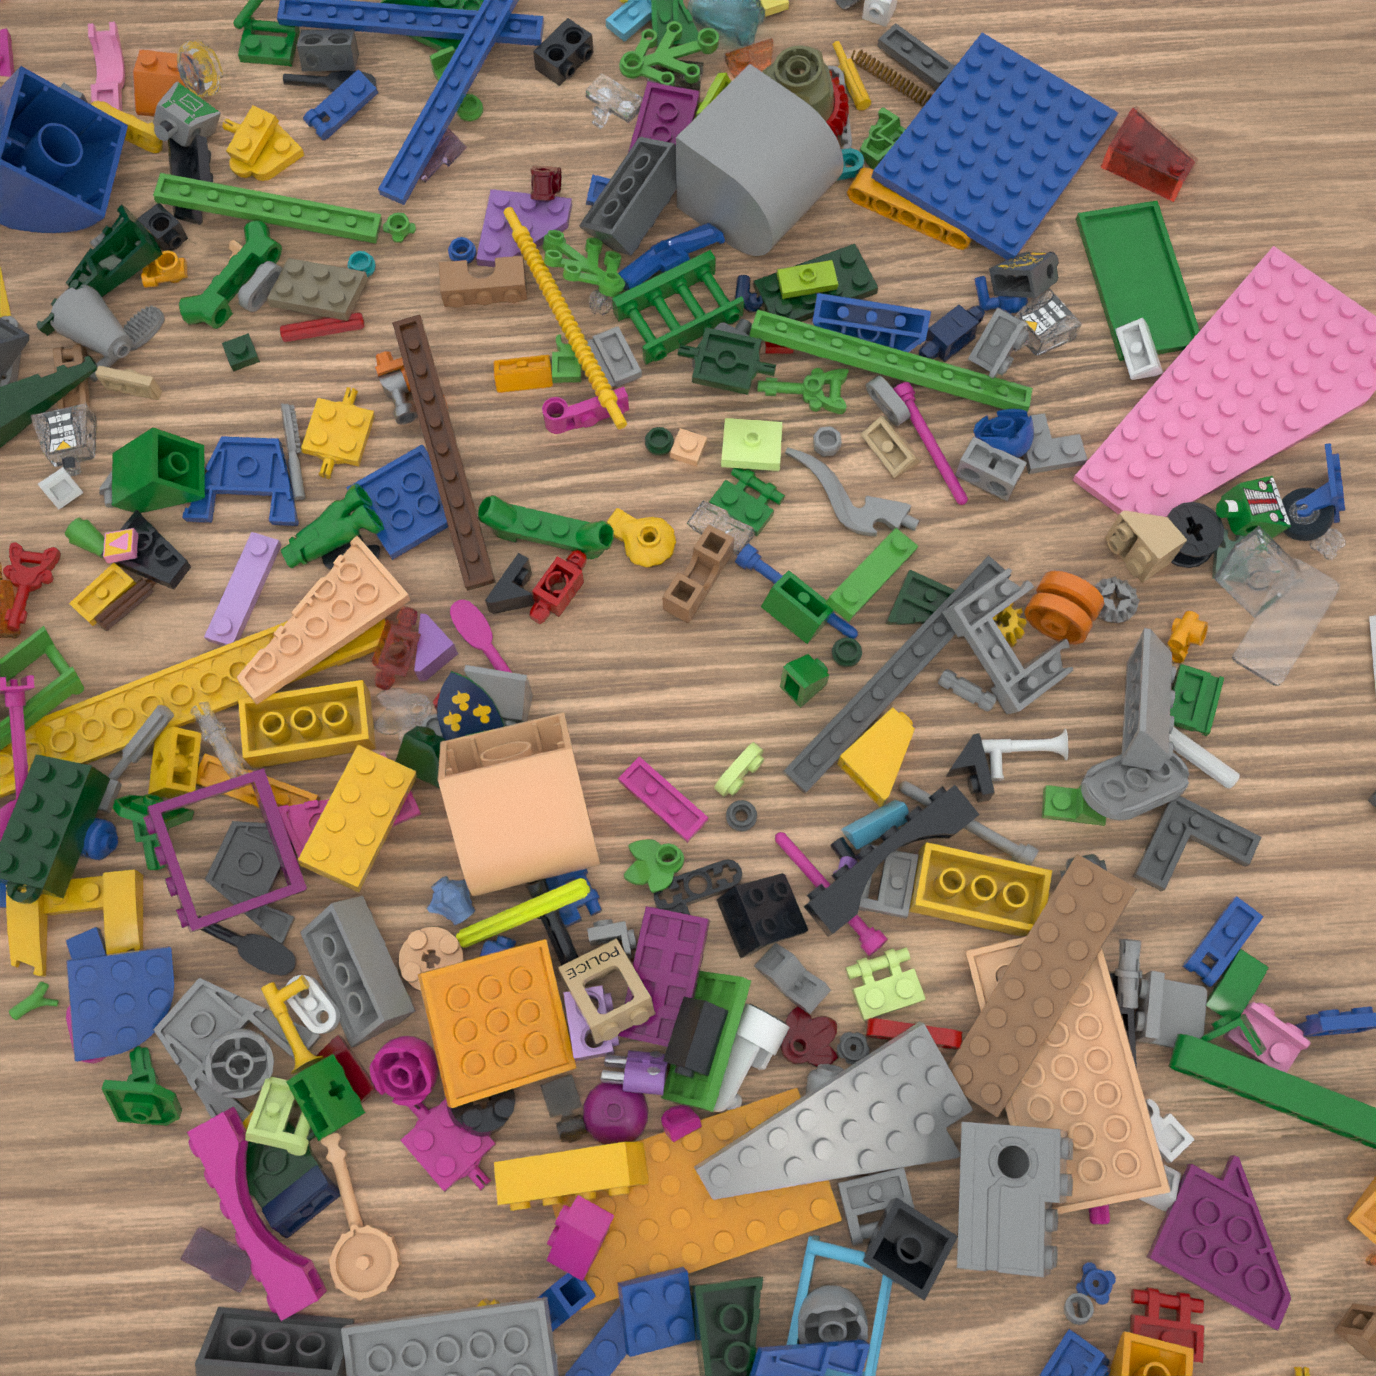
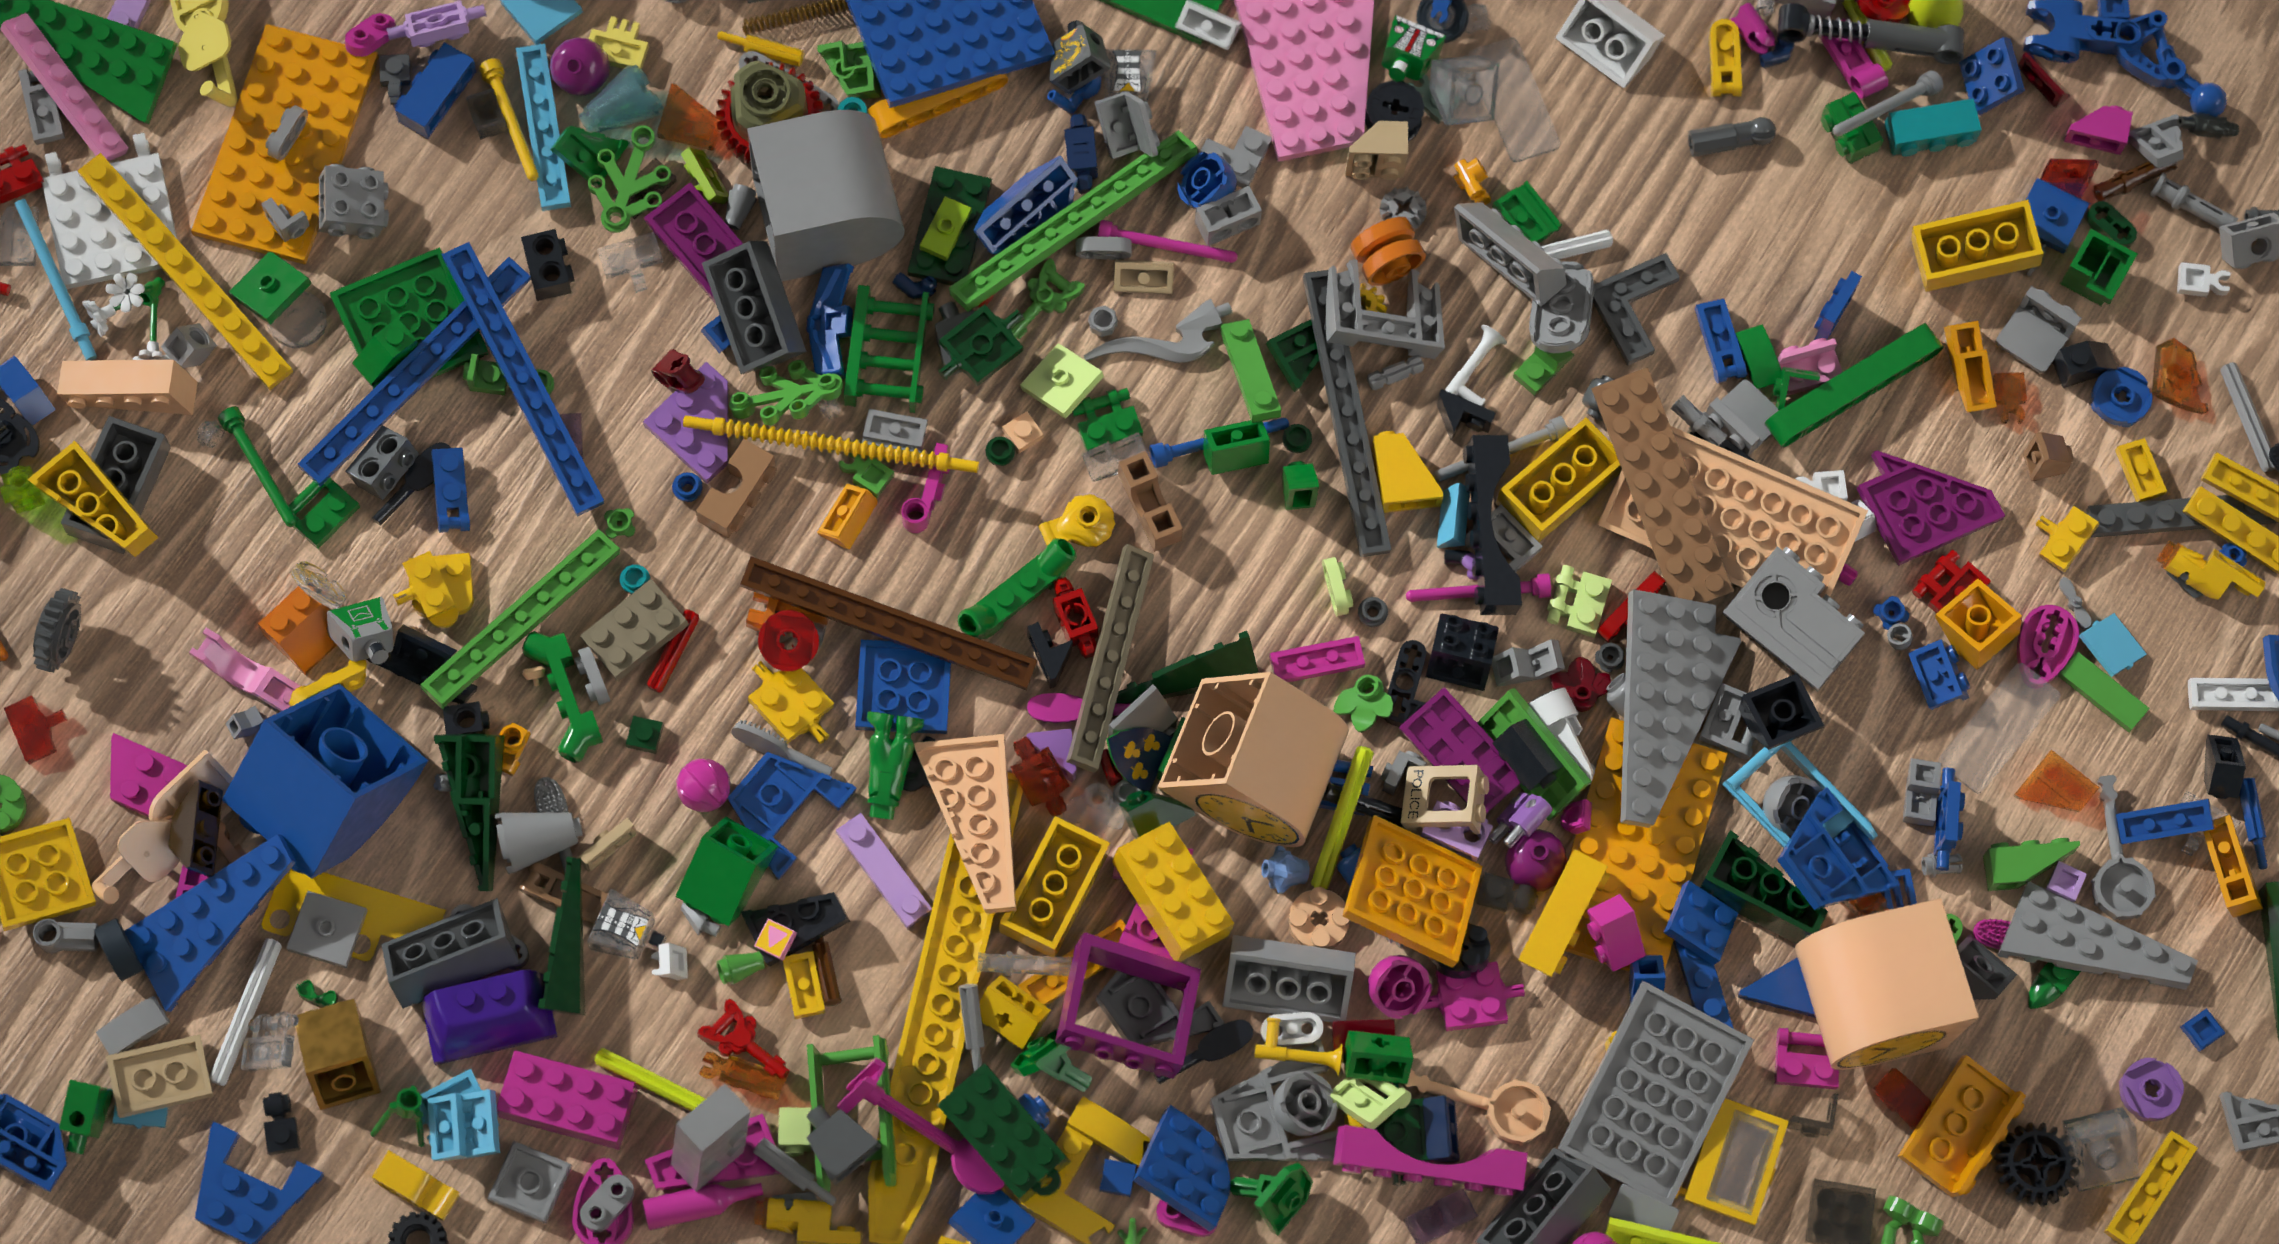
camera: 60 degrees left, 0 degrees up
(217, 412) = (703, 785): none -> dark pink piece
(391, 396) = (775, 652): none -> red plate
(538, 633) = (1110, 658): none -> dark tan plate
(585, 716) = (1185, 675): none -> dark green wedge

